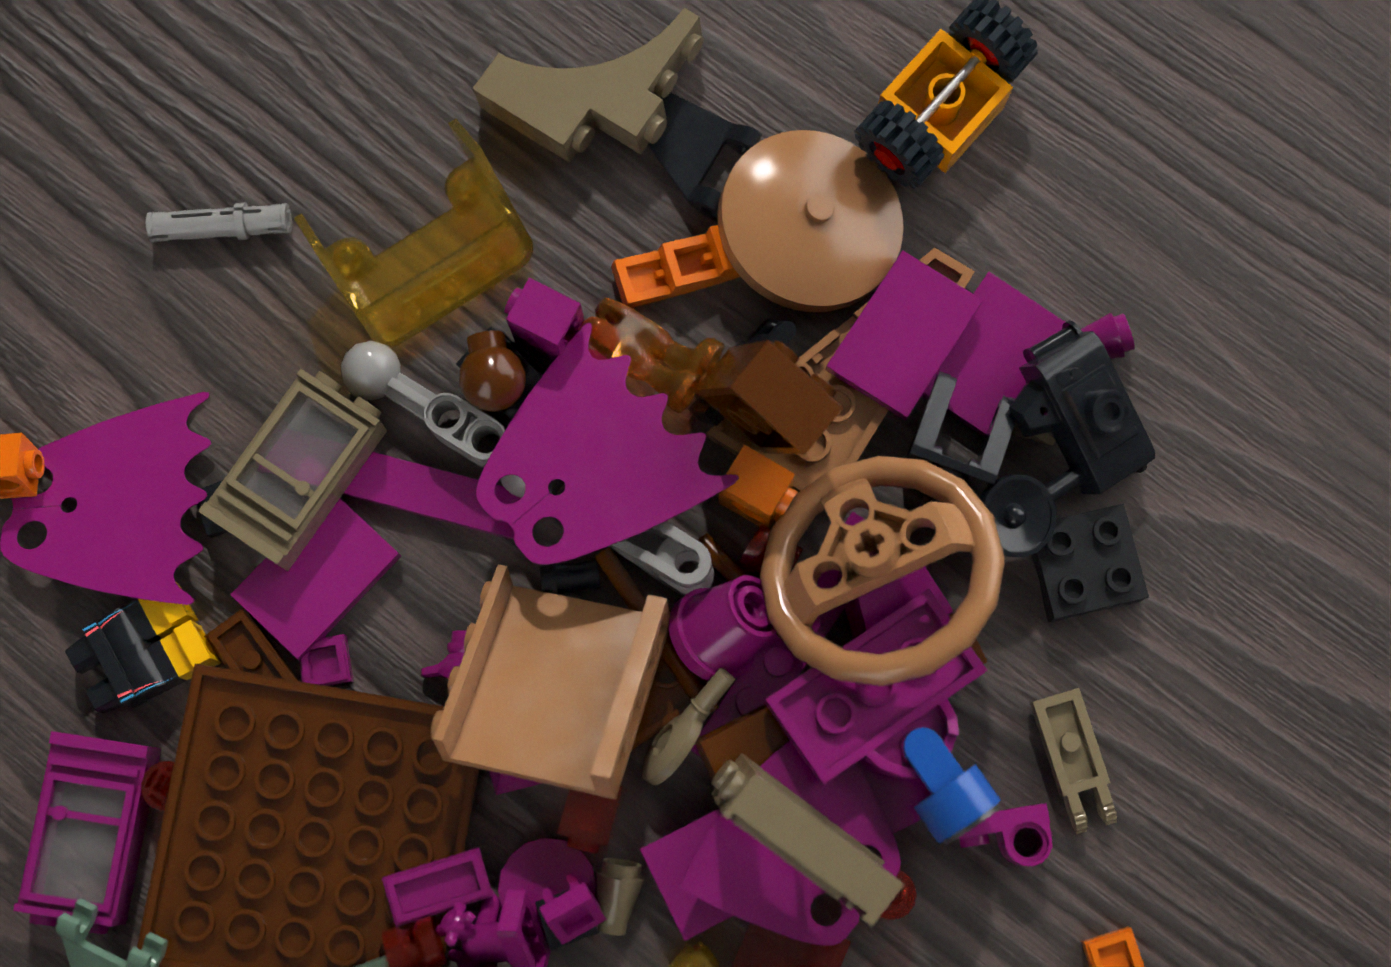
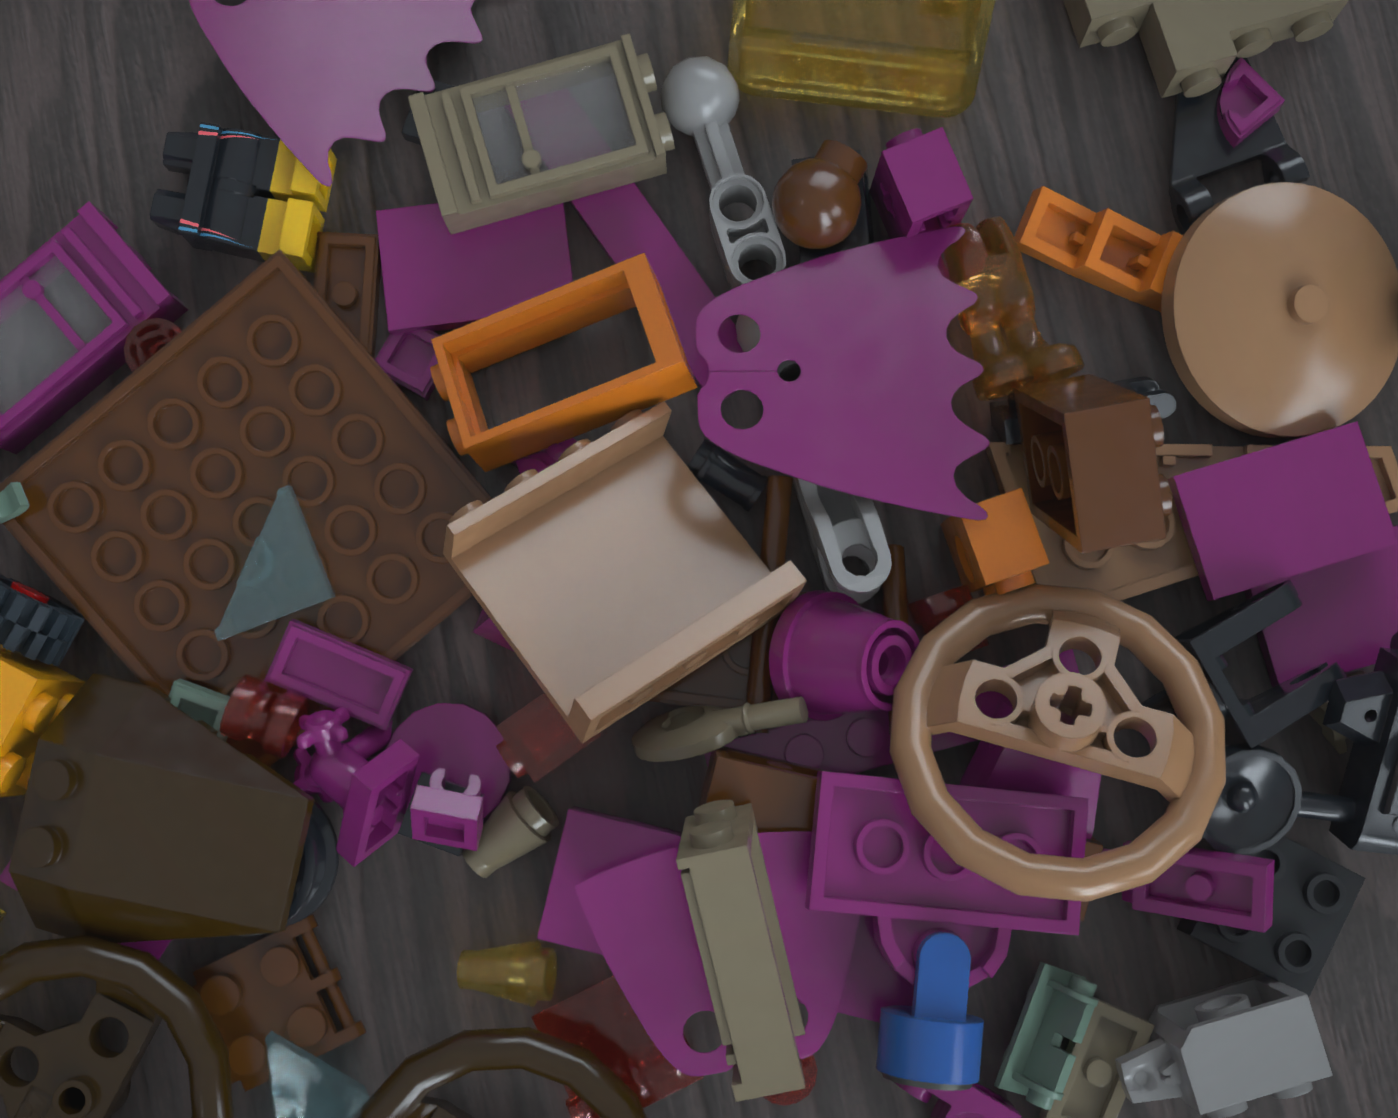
camera: 40 degrees right, 5 degrees up
(352, 856) = (280, 572): none -> clear light blue tile
(385, 578) = (541, 321): none -> orange window
(690, 119) = (1245, 102): none -> magenta tile
(1028, 764) = (1054, 1008): none -> sand green hinge
(1037, 585) = (1211, 889): none -> magenta hinge
(1126, 665) = (1228, 1048): none -> light grey hinge

